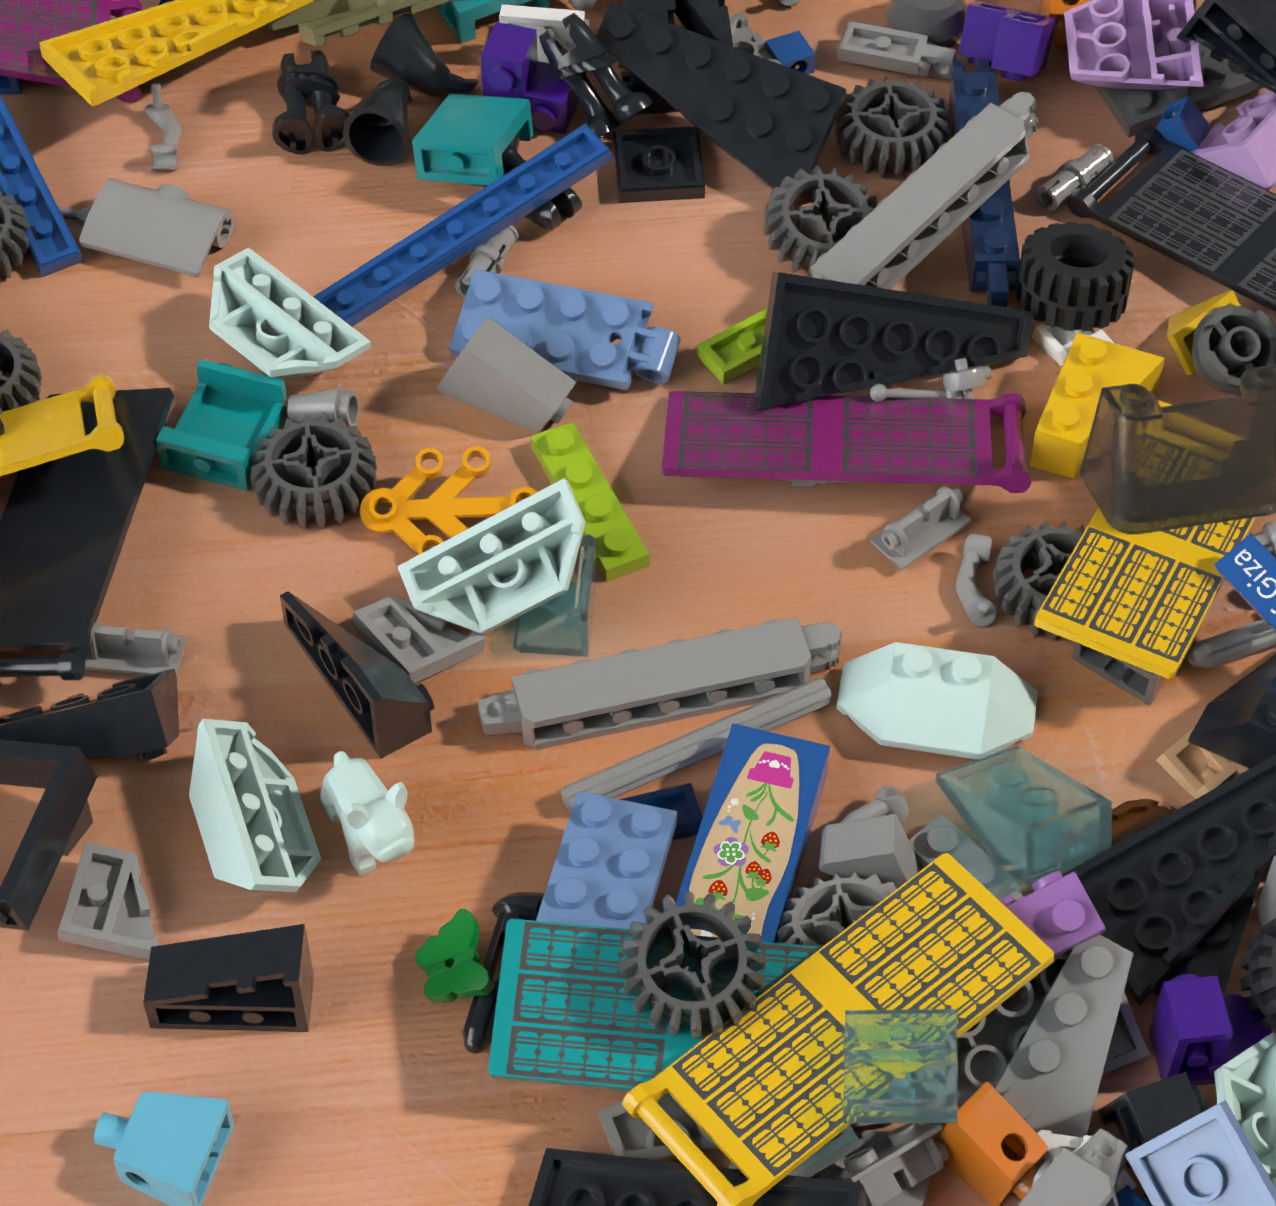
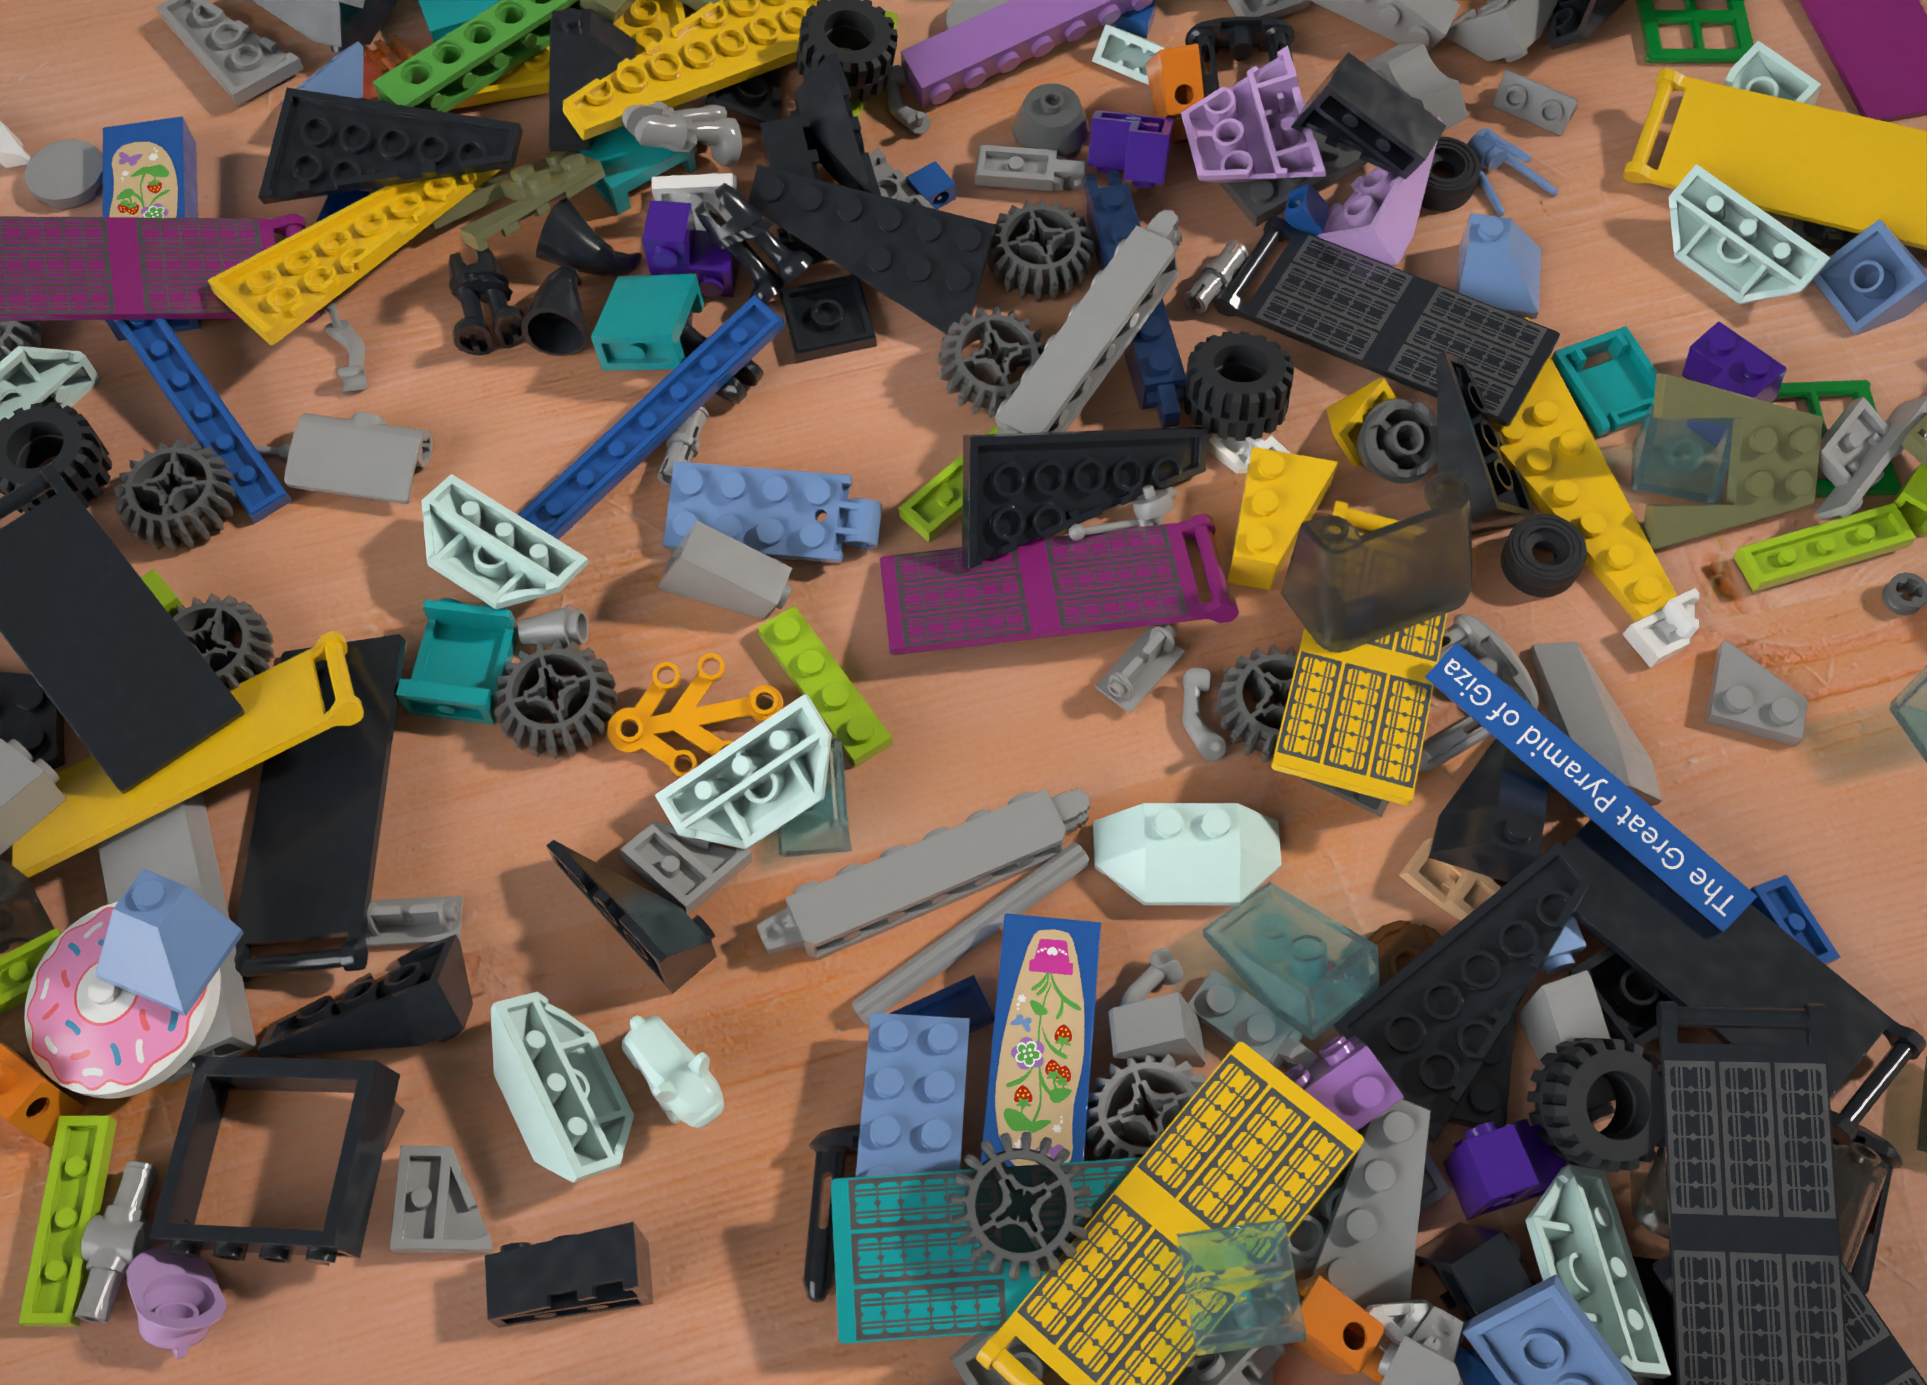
camera: 10 degrees left, 10 degrees up
(453, 962) = (780, 1194): green animal -> none

